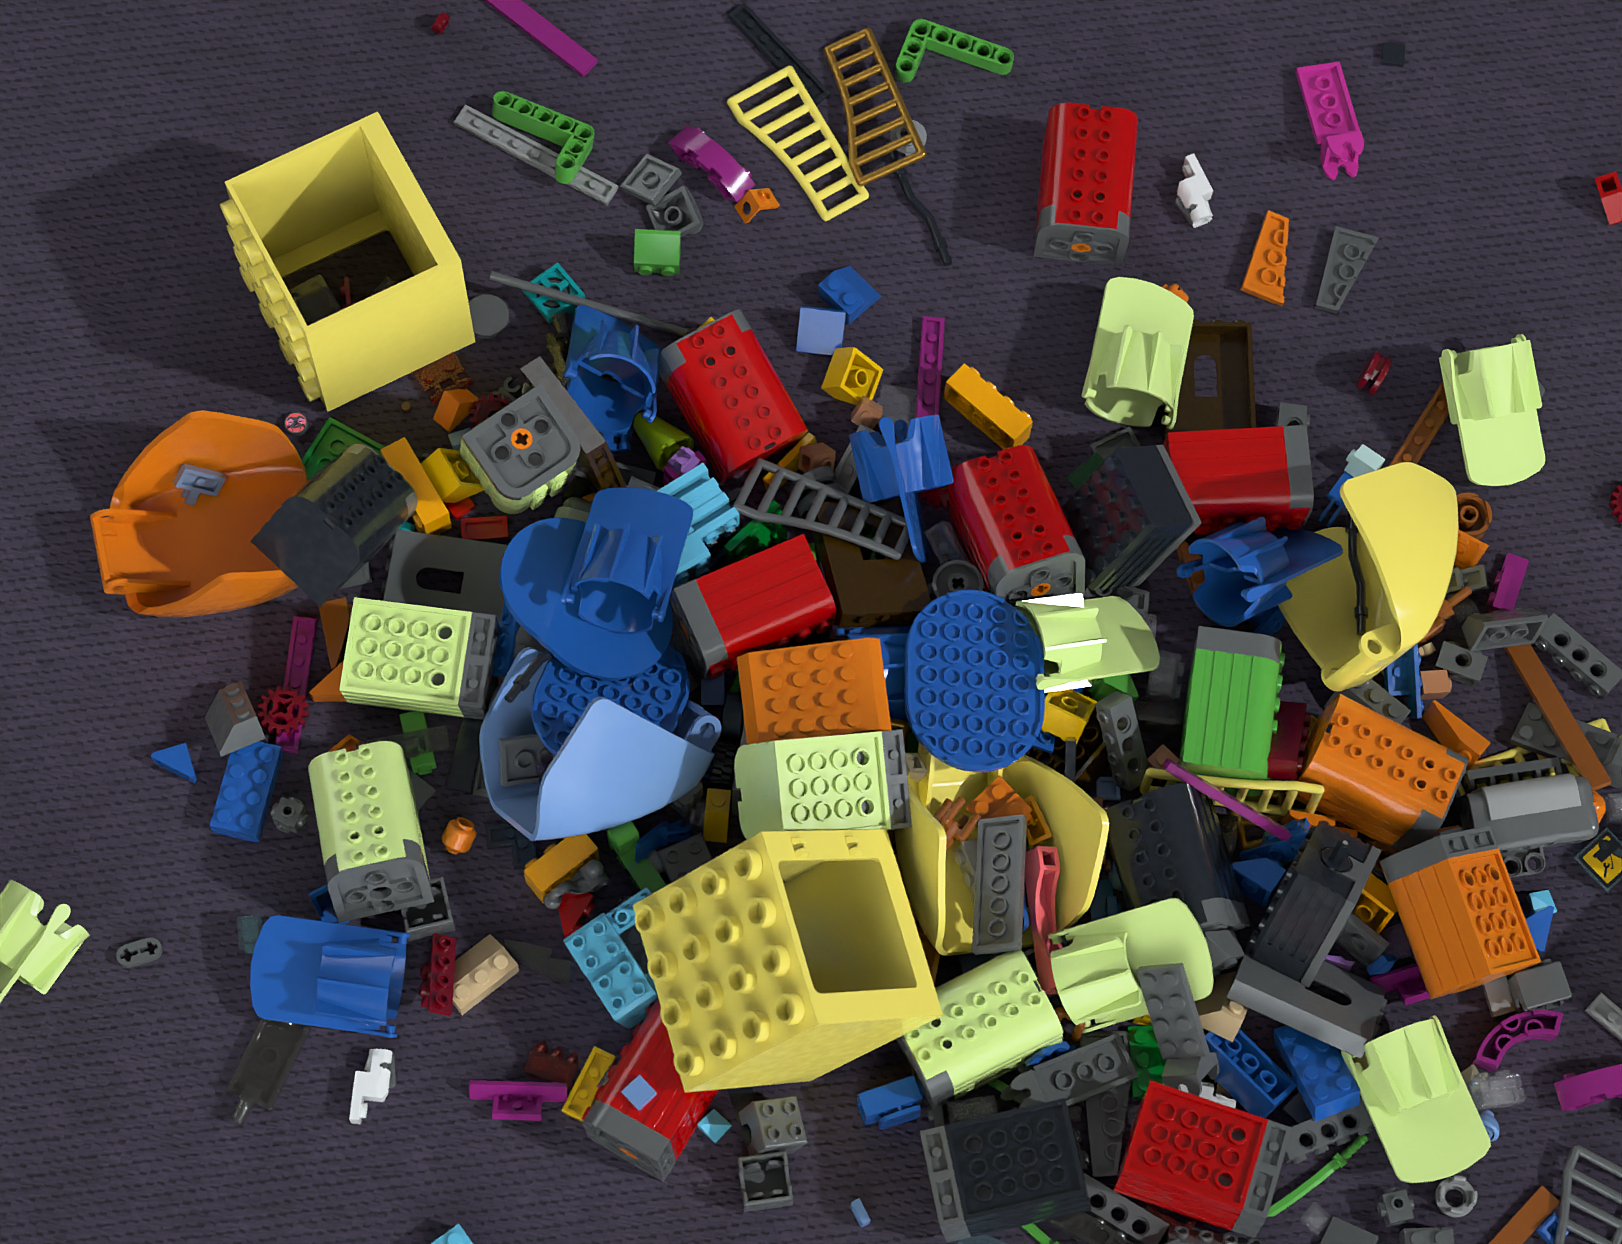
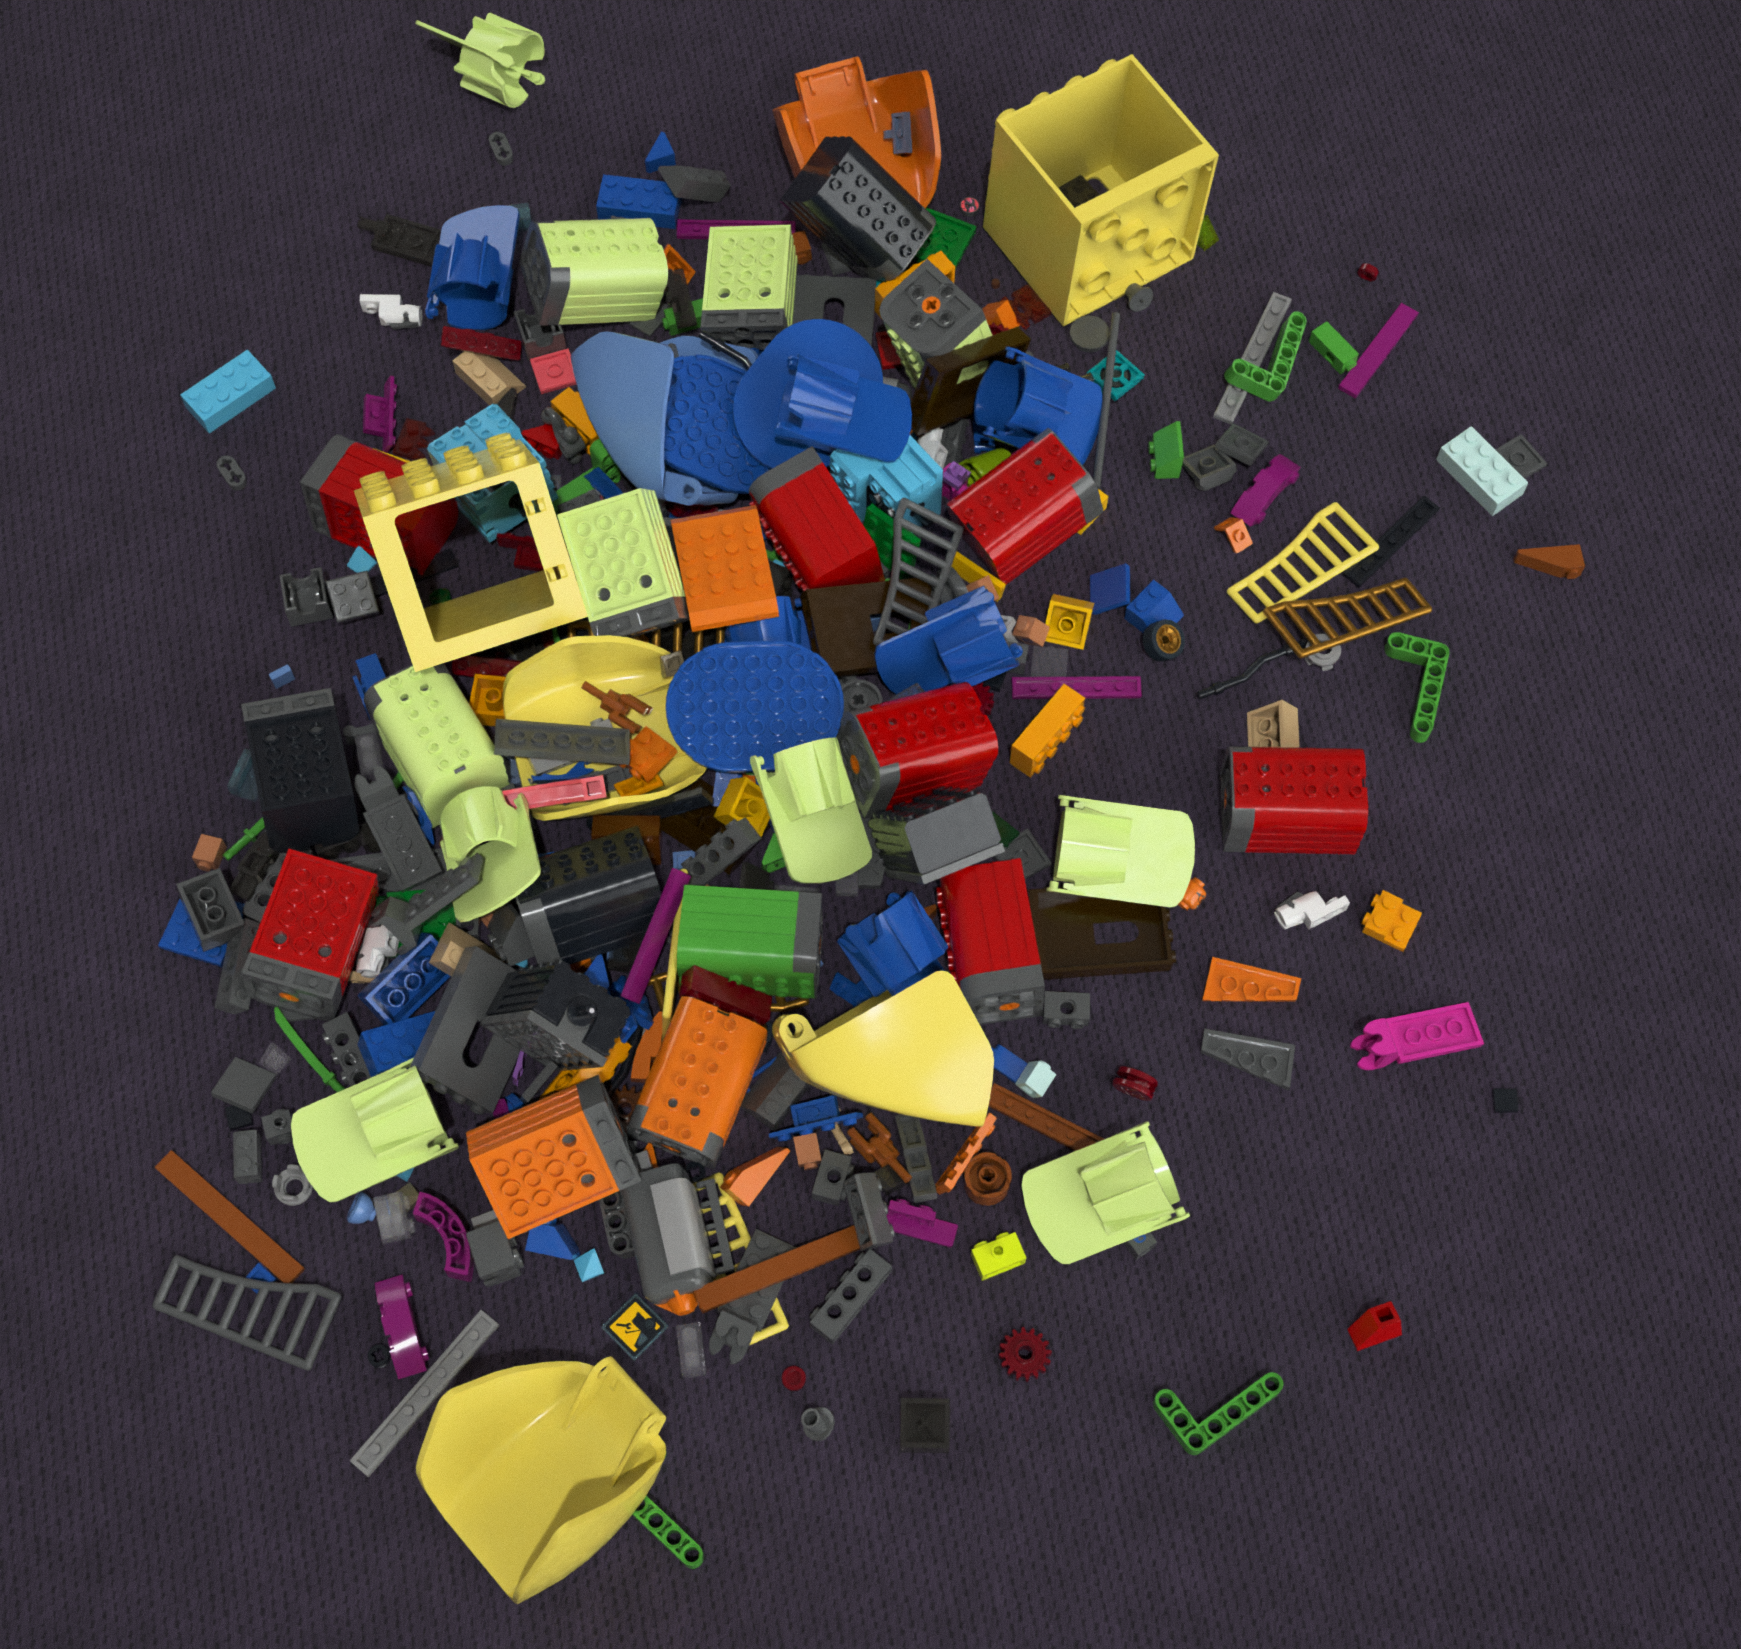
camera: 90 degrees right, 5 degrees down
(276, 717) = (707, 216): dark red gear -> none
(473, 900) = (553, 371): none -> coral tile
(537, 71) = (1334, 348): none -> bright green brick
(639, 1092) = (358, 464): medium blue tile -> none
(886, 286) = (1167, 632): none -> wheel
(1004, 199) = (1273, 726): none -> tan slope
(1207, 123) = (1391, 920): none -> light orange plate
(1540, 518) = (998, 1255): none -> neon yellow brick

